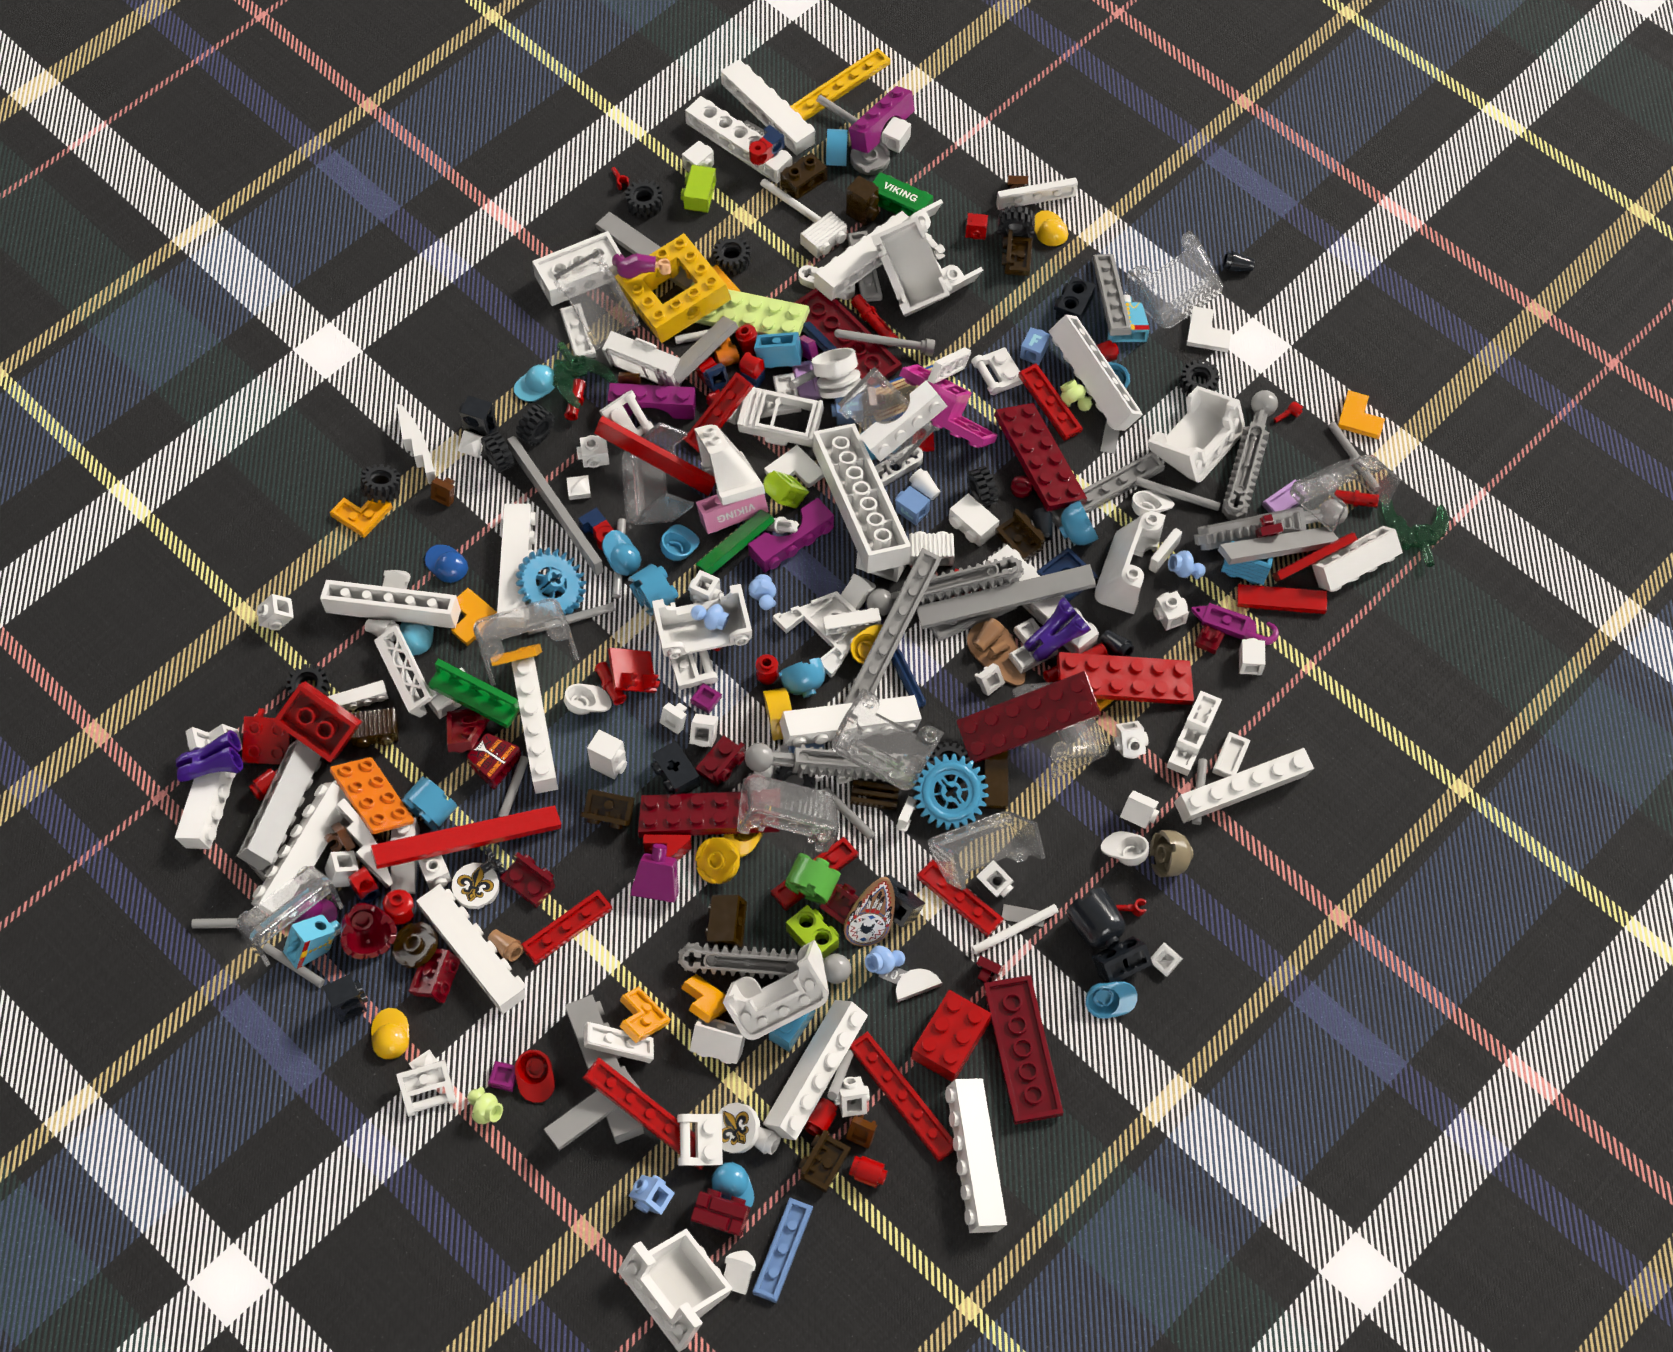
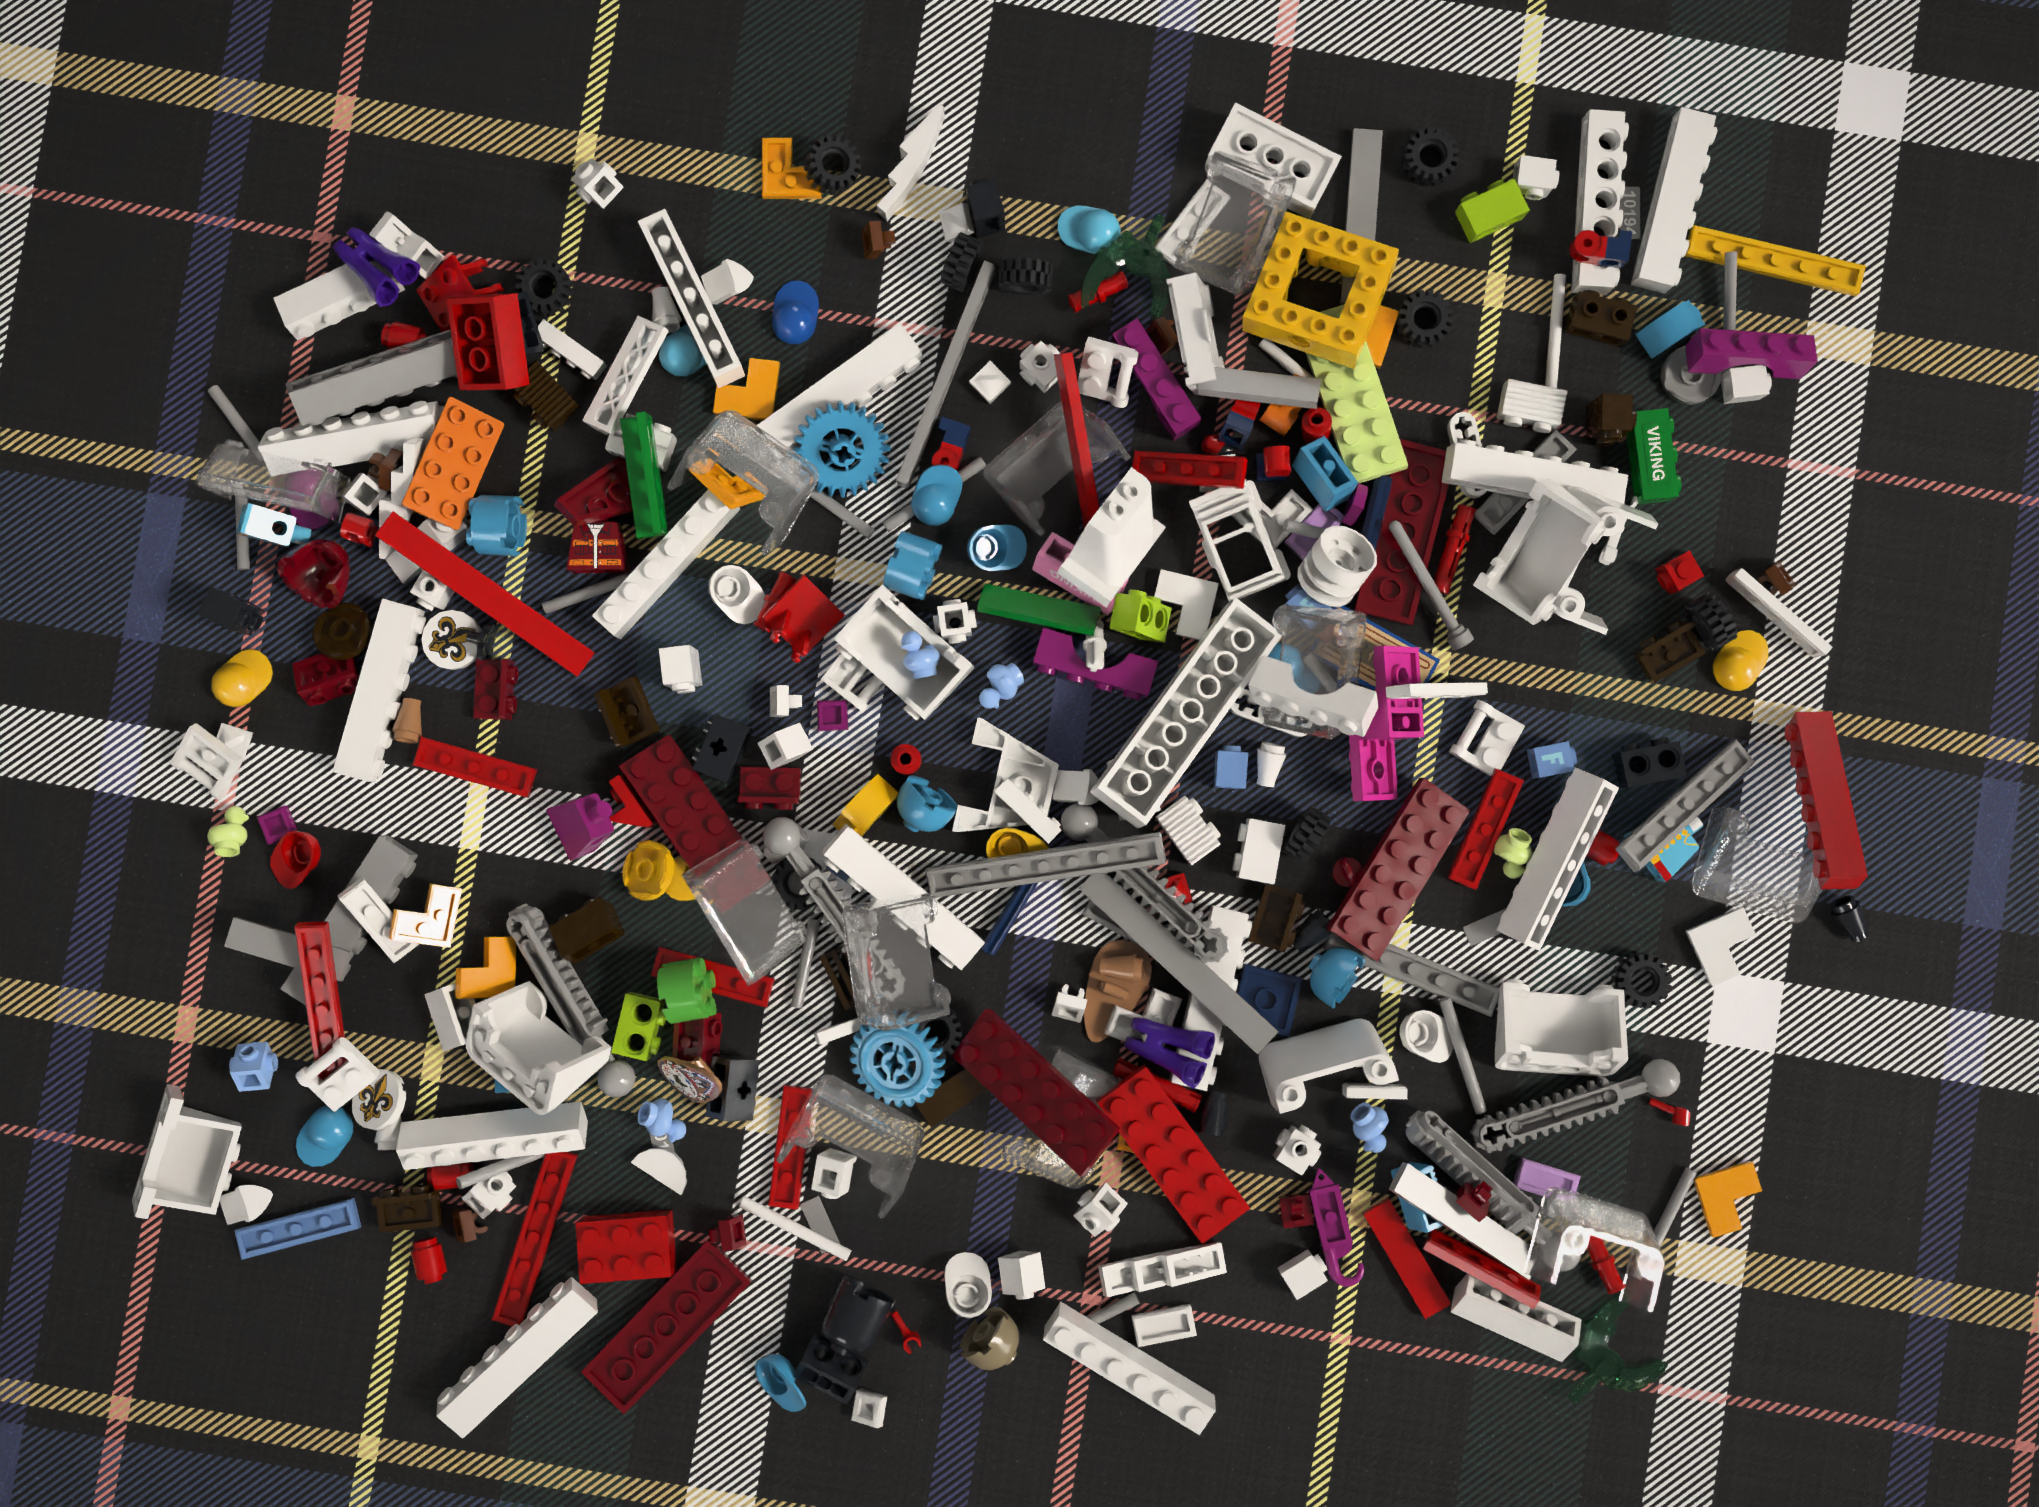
camera: 55 degrees right, 25 degrees up
(399, 906) = (367, 584): red head -> none
(620, 178) = (1440, 106): red hand -> none
(639, 263) = (1308, 233): magenta arm -> none
(721, 1213) = (284, 1146): dark red brick -> none
(1160, 224) = (1825, 801): none -> red brick

